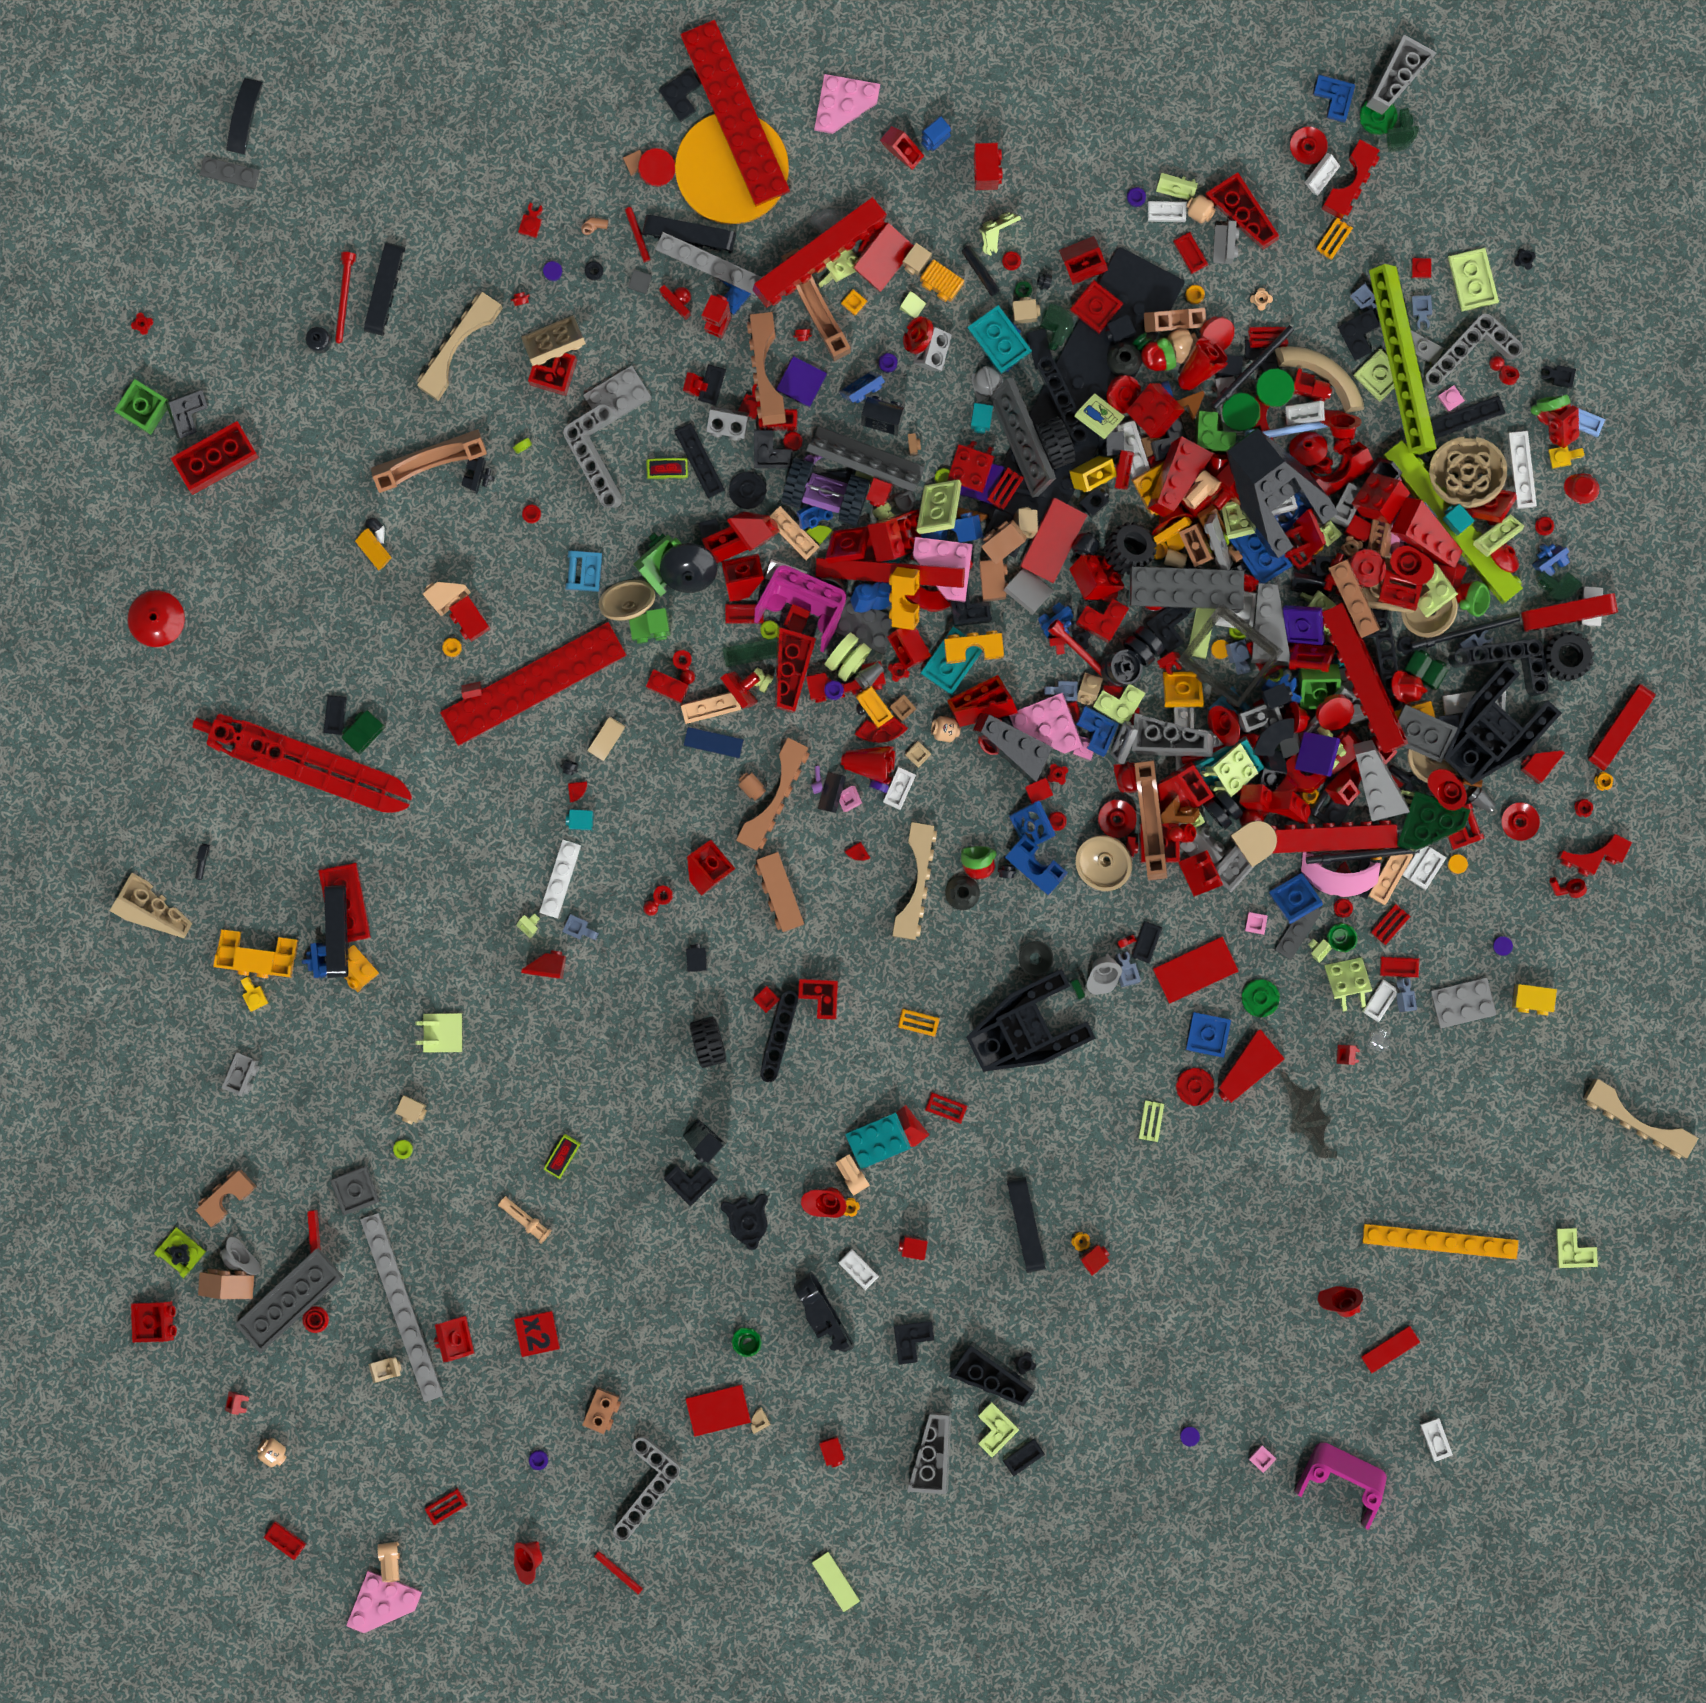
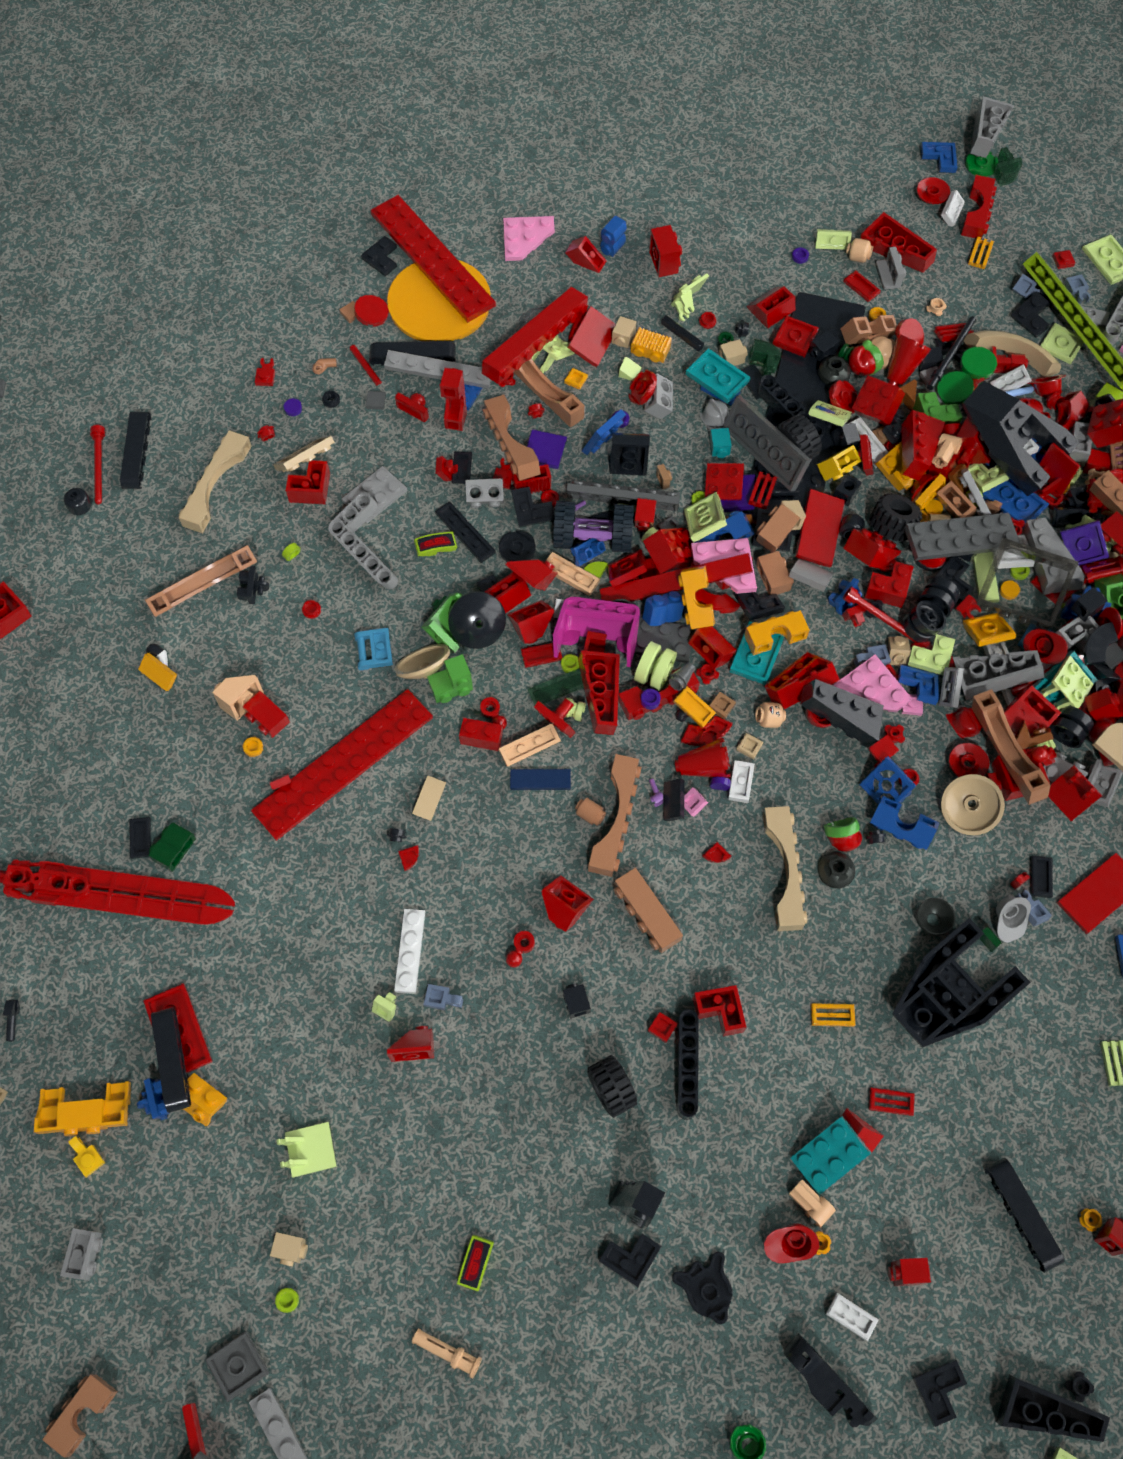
camera: 15 degrees left, 20 degrees down
(580, 820) = (419, 884): teal brick -> none
(1166, 211) = (830, 259): white plate -> none
(1237, 653) = (1029, 589): sand blue plate -> none

